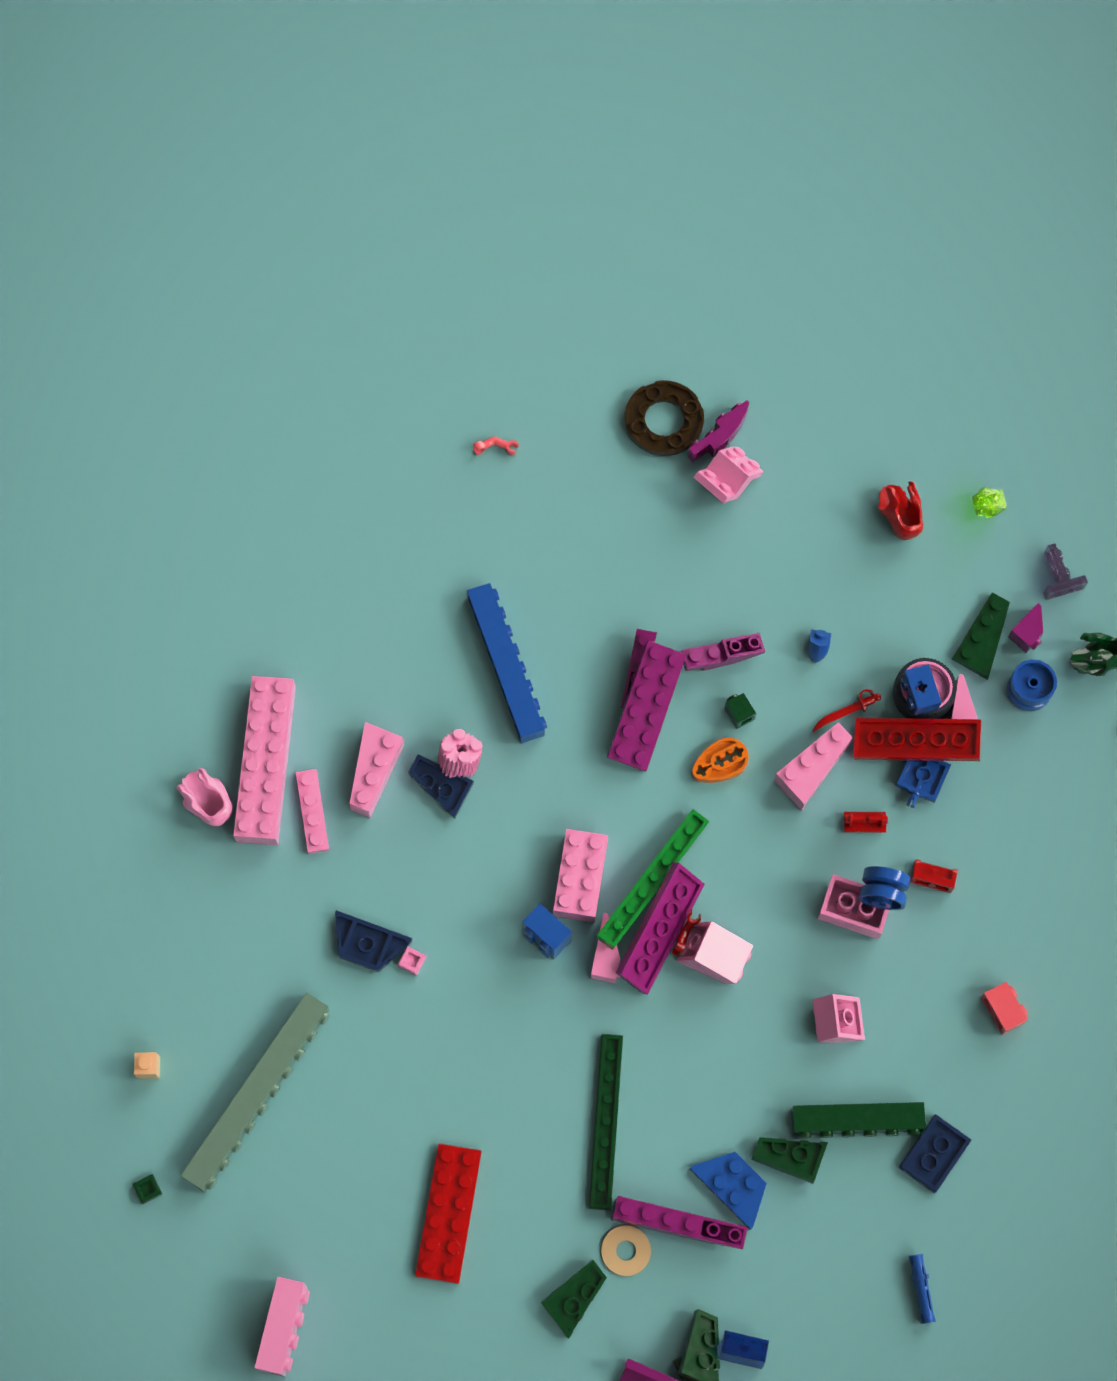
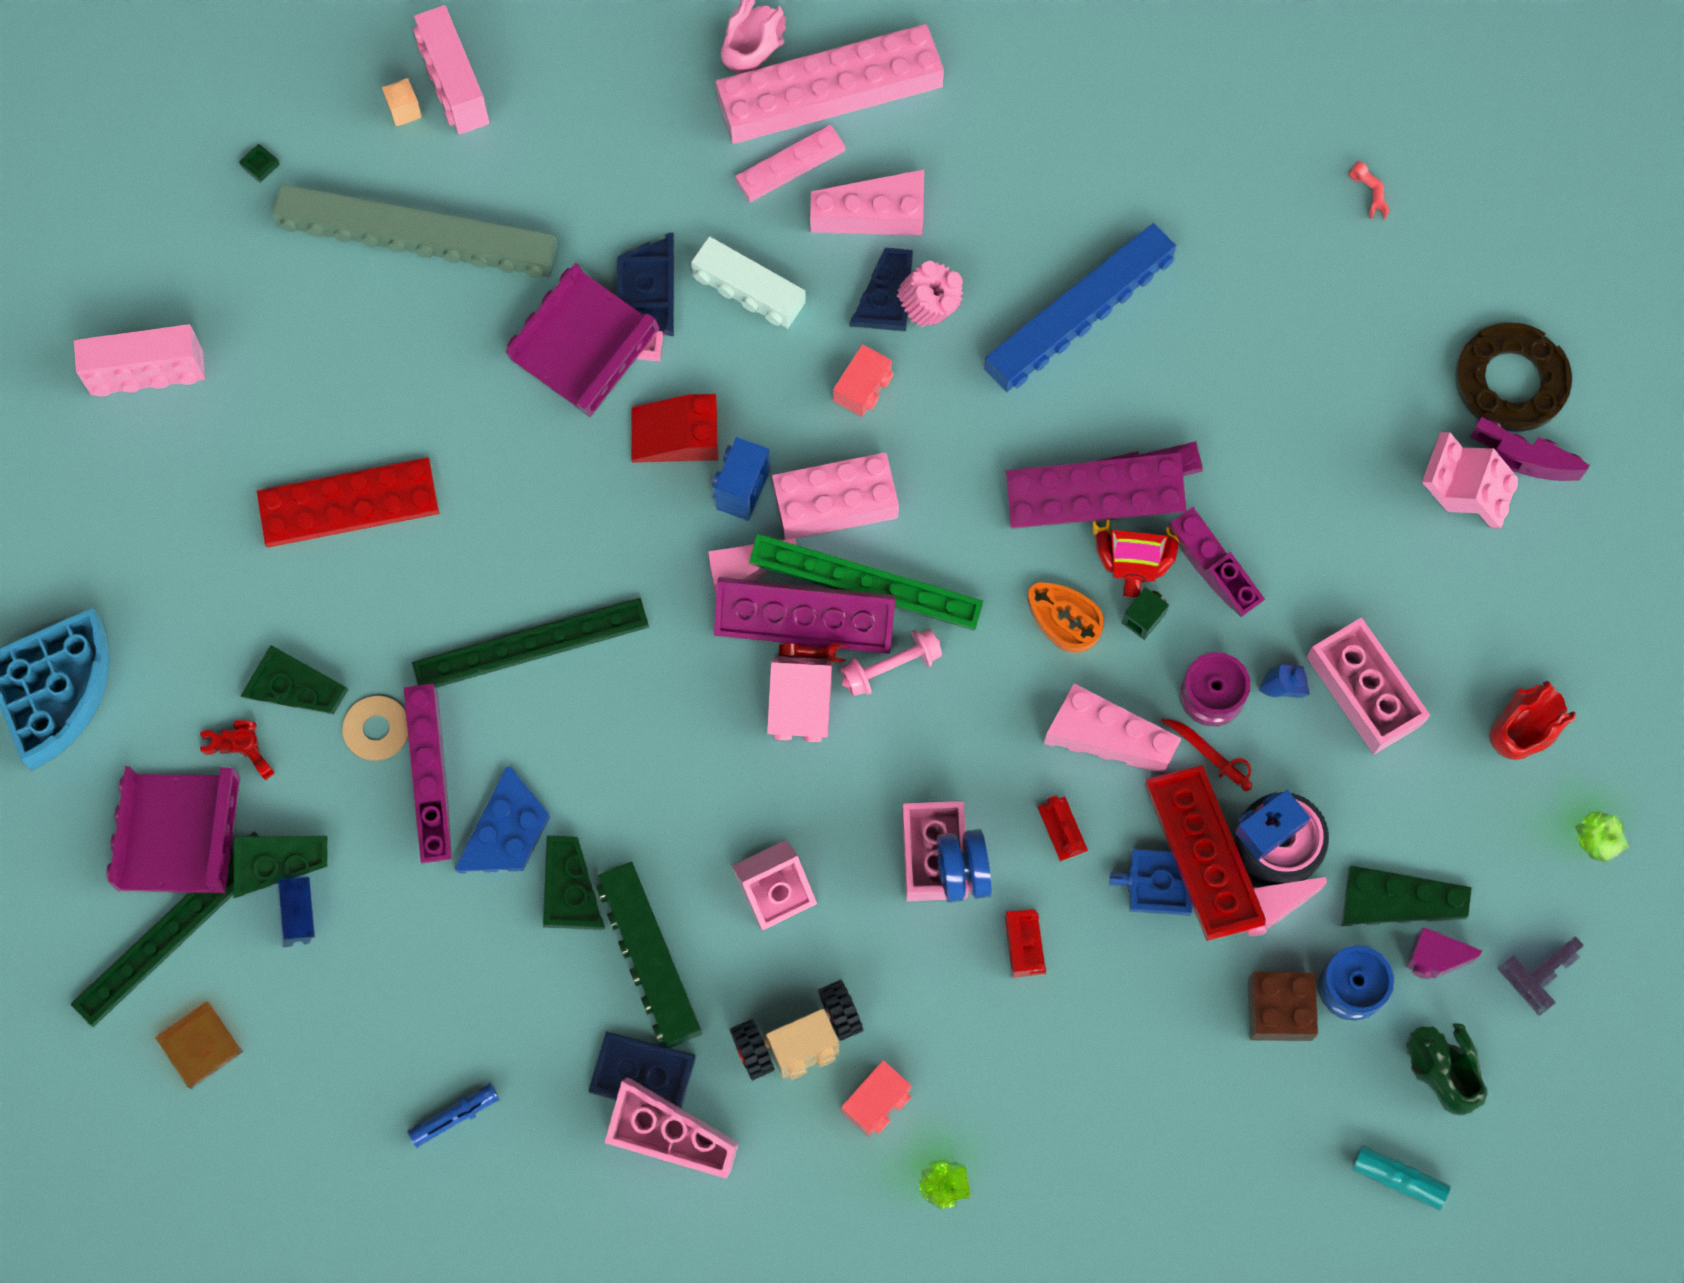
camera: 70 degrees right, 0 degrees up
(139, 1019) = (450, 70): none -> bright pink brick
(394, 1003) = (581, 340): none -> magenta panel
(395, 874) = (748, 283): none -> light aqua brick
(487, 964) = (676, 429): none -> red slope
(502, 825) = (863, 380): none -> coral brick
(602, 1349) = (240, 741): none -> red piece
(699, 700) = (1135, 555): none -> red torso
(715, 911) = (926, 647): none -> bright pink piece
(810, 688) = (1216, 672): none -> magenta wheel
(842, 595) = (1367, 686): none -> bright pink brick
(955, 1039) = (802, 1041): none -> brick
(985, 1148) = (665, 1131): none -> bright pink wedge
(1030, 735) = (1282, 1006): none -> copper brick
(1074, 985) = (944, 1183): none -> clear neon green brick

